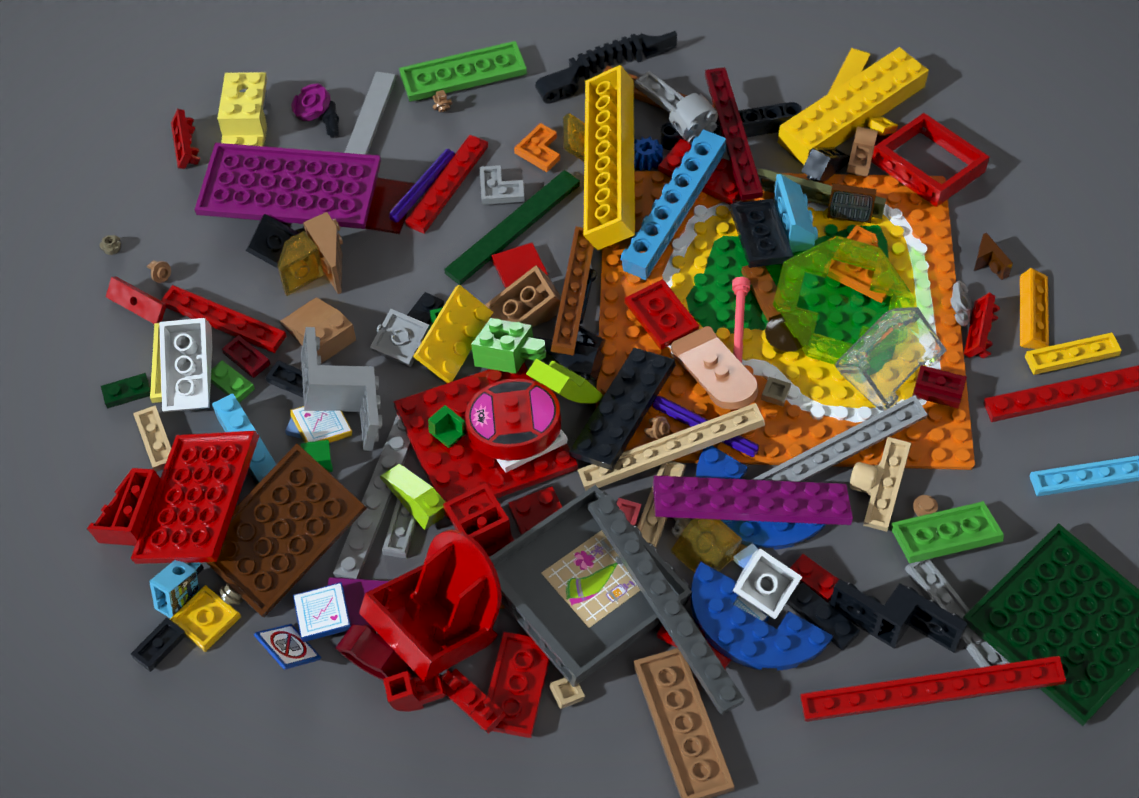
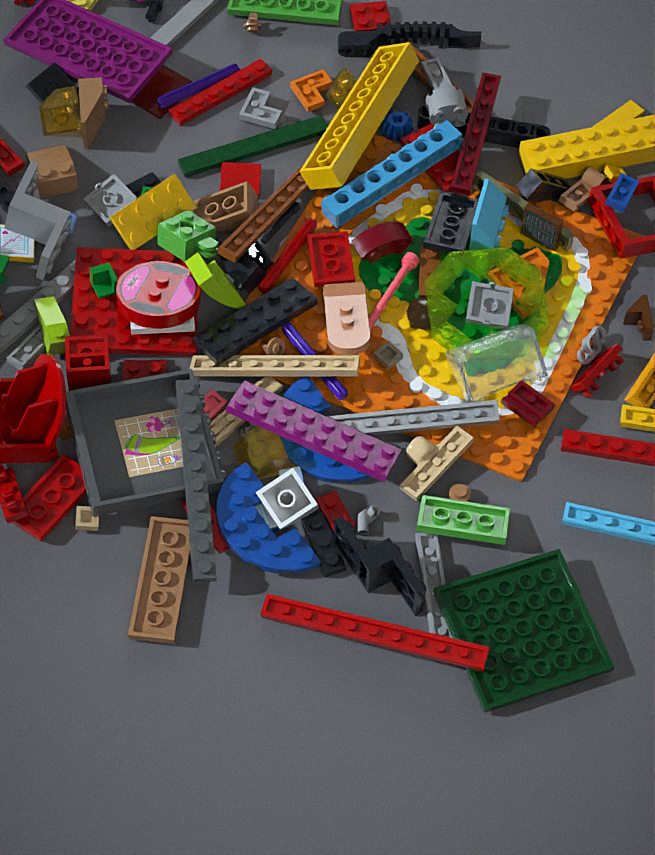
camera: 20 degrees right, 0 degrees up
(553, 54) = (367, 15): none -> red plate
(615, 327) = (287, 256): none -> red axle
(704, 275) = (382, 240): none -> dark red brick
(849, 567) = (366, 517): none -> light grey arm
(851, 301) = (489, 305): none -> light grey plate
(908, 140) = (622, 192): none -> blue plate

